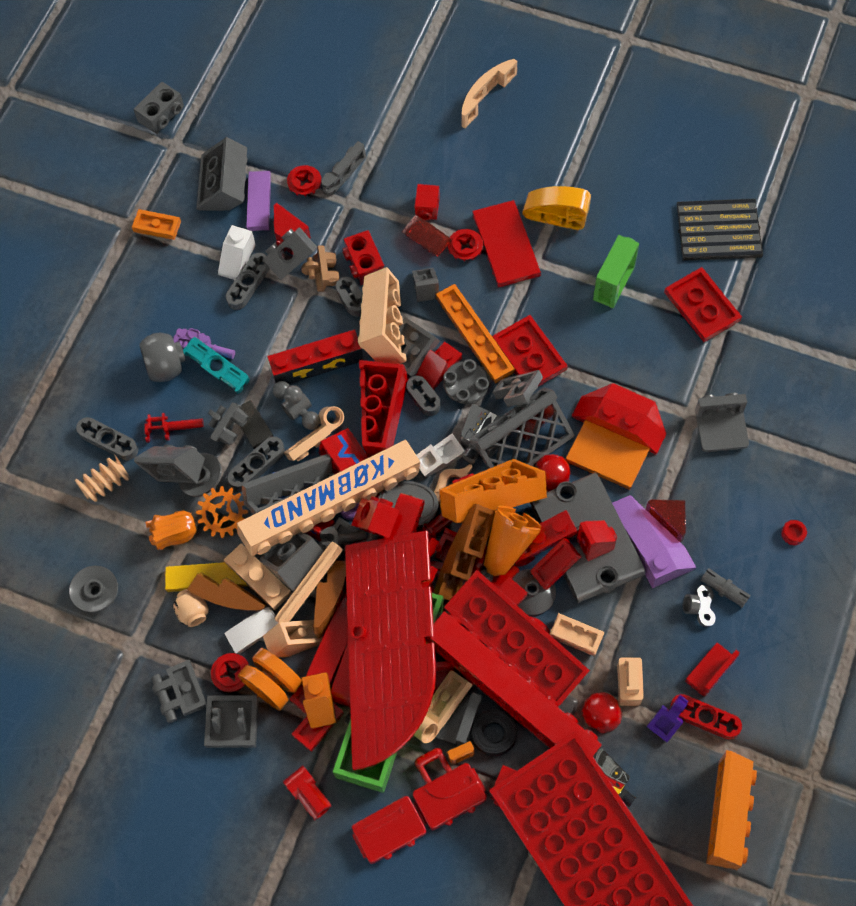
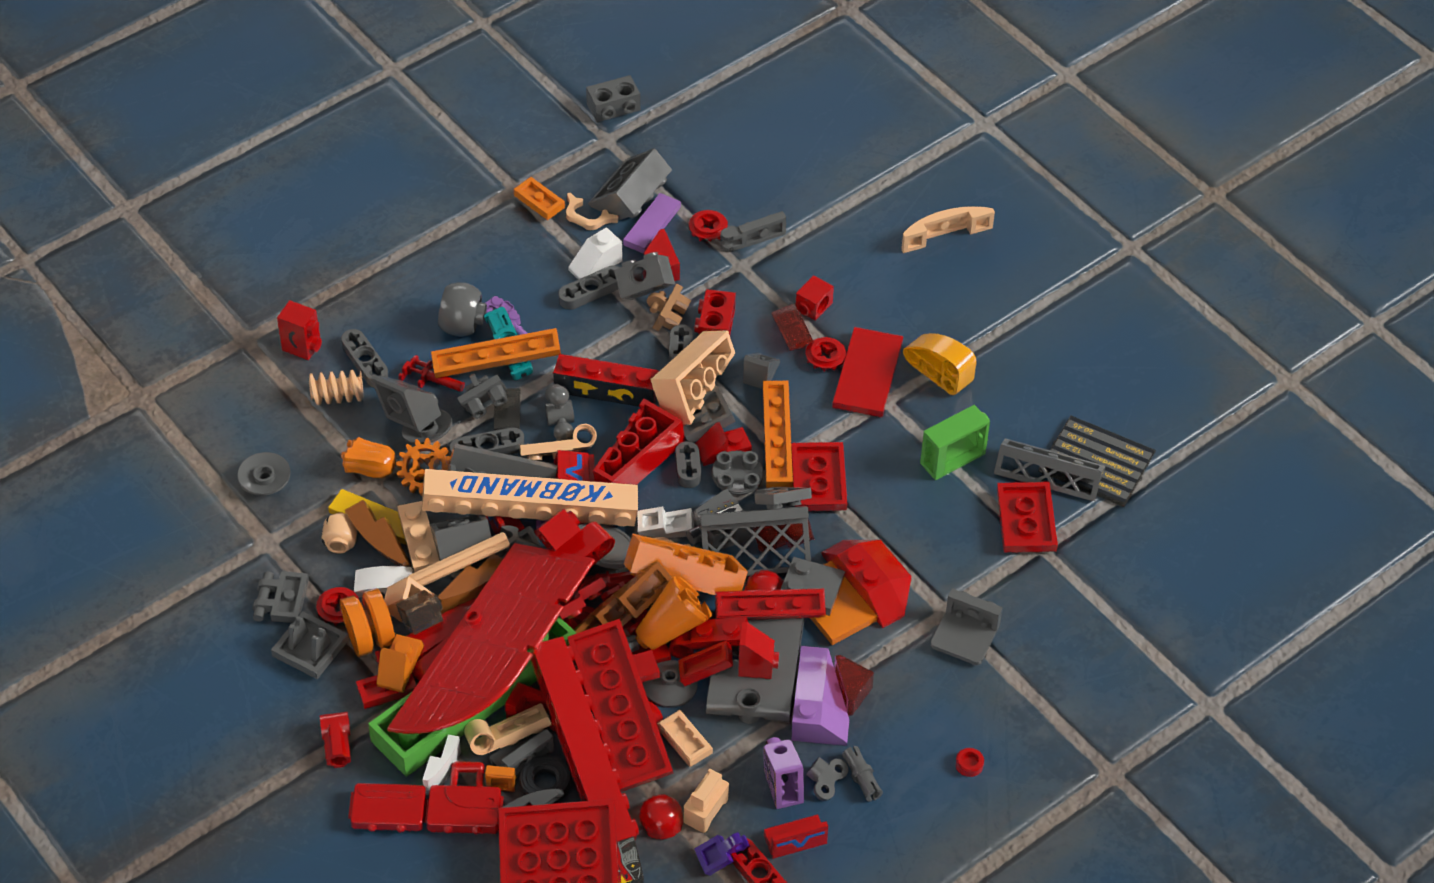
camera: 25 degrees right, 15 degrees down
(41, 445) = (299, 330): none -> red brick
(215, 381) = (495, 353): none -> orange plate
(219, 214) = (588, 224): none -> light nougat helmet
(308, 647) = (420, 611): none -> clear smoke brick
(407, 773) = (440, 768): none -> white slope
(506, 756) = (538, 798): none -> dark grey slope
(573, 487) = (771, 604): none -> red tile
(588, 451) = (811, 575): none -> dark grey plate
(671, 622) = (782, 759): none -> medium lavender torso
(693, 247) = (1052, 460): none -> dark grey fence

